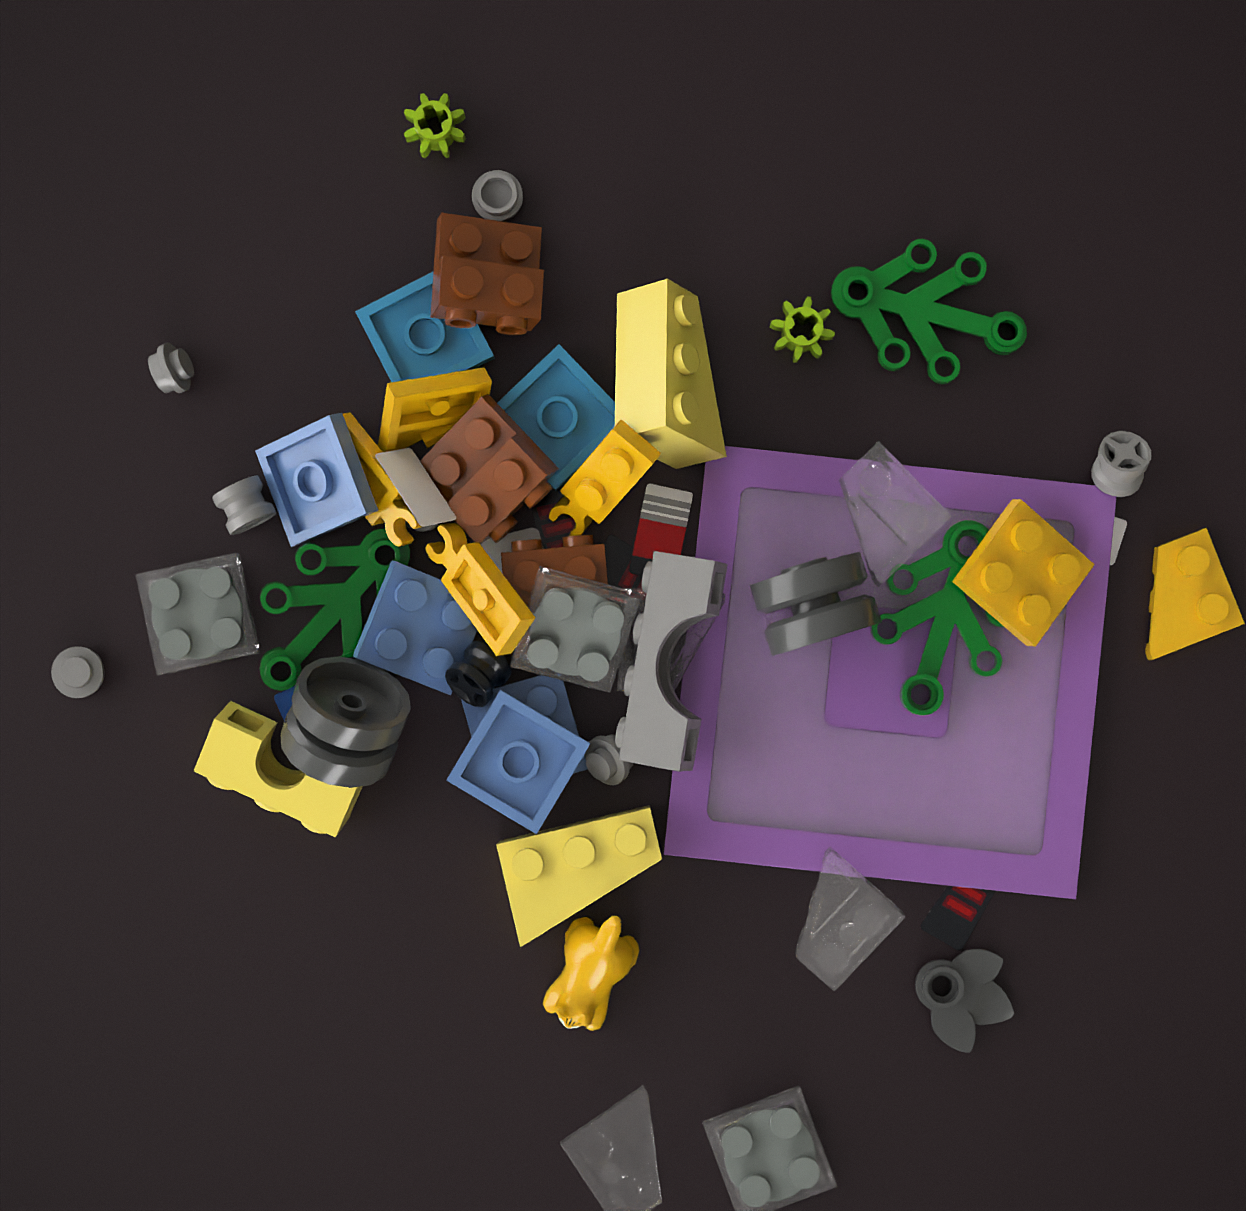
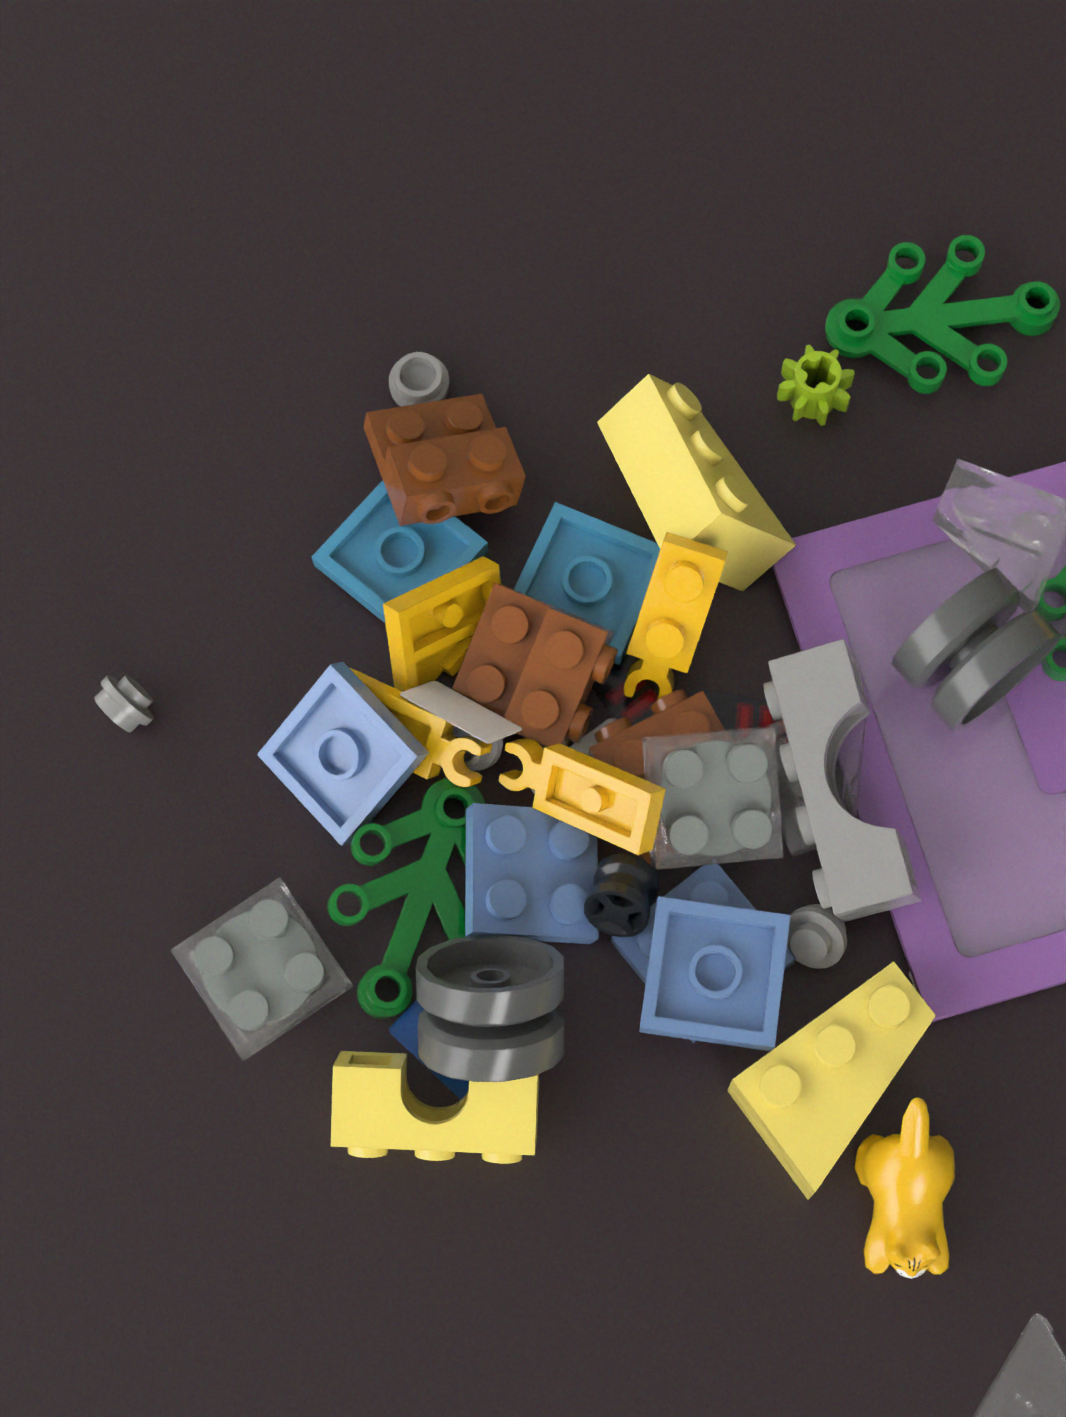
camera: 20 degrees left, 15 degrees down
(78, 672) = (143, 1093): light grey plate -> none
(244, 505) = (268, 818): light grey wheel -> none
(447, 119) = (320, 334): lime gear -> none
(660, 525) = (748, 645): sticker -> none

